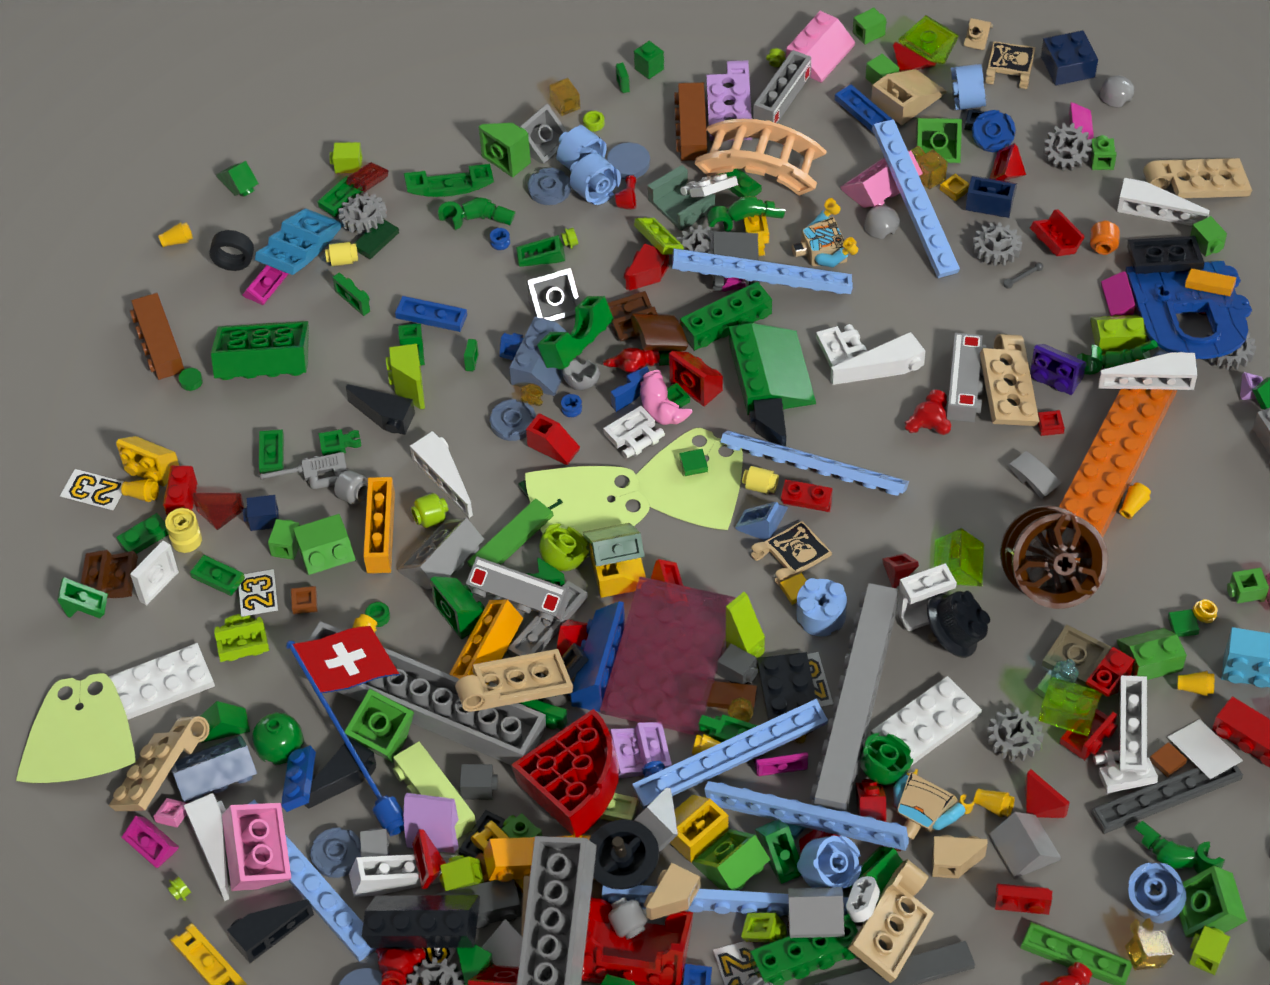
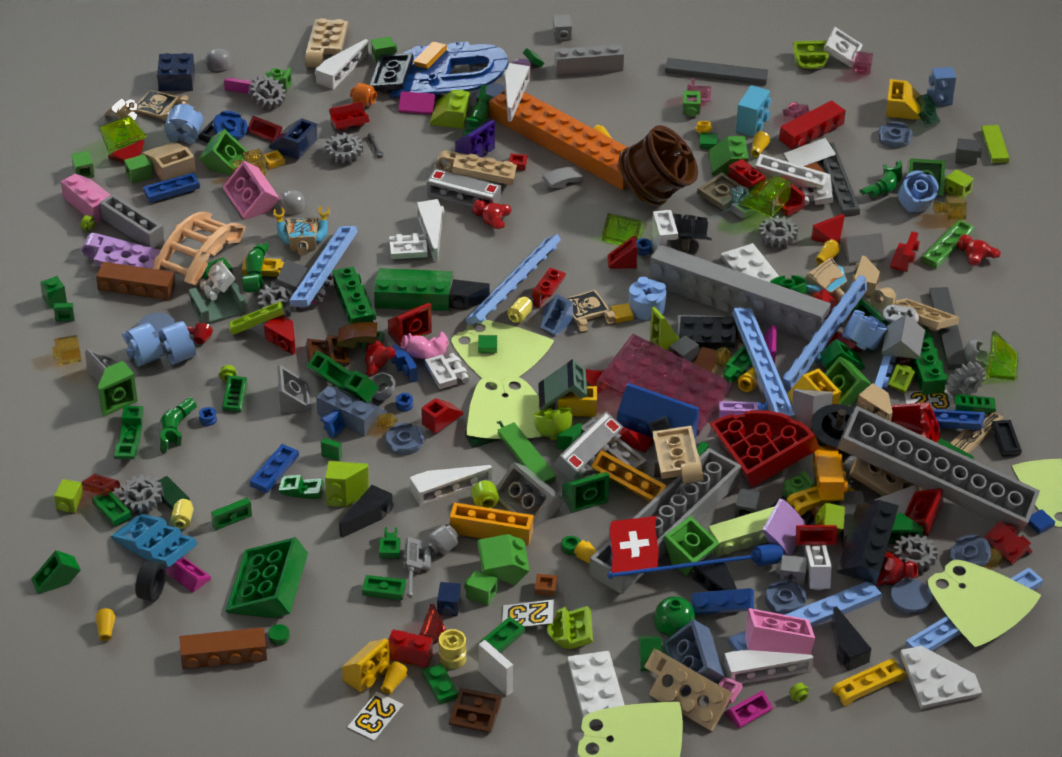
camera: 80 degrees left, 10 degrees down
(79, 597) = (501, 727): green slope -> none
(549, 186) = (161, 379): sand blue tile -> none
(594, 121) = (100, 340): lime tile -> none
(915, 199) = (288, 171): light blue plate -> none

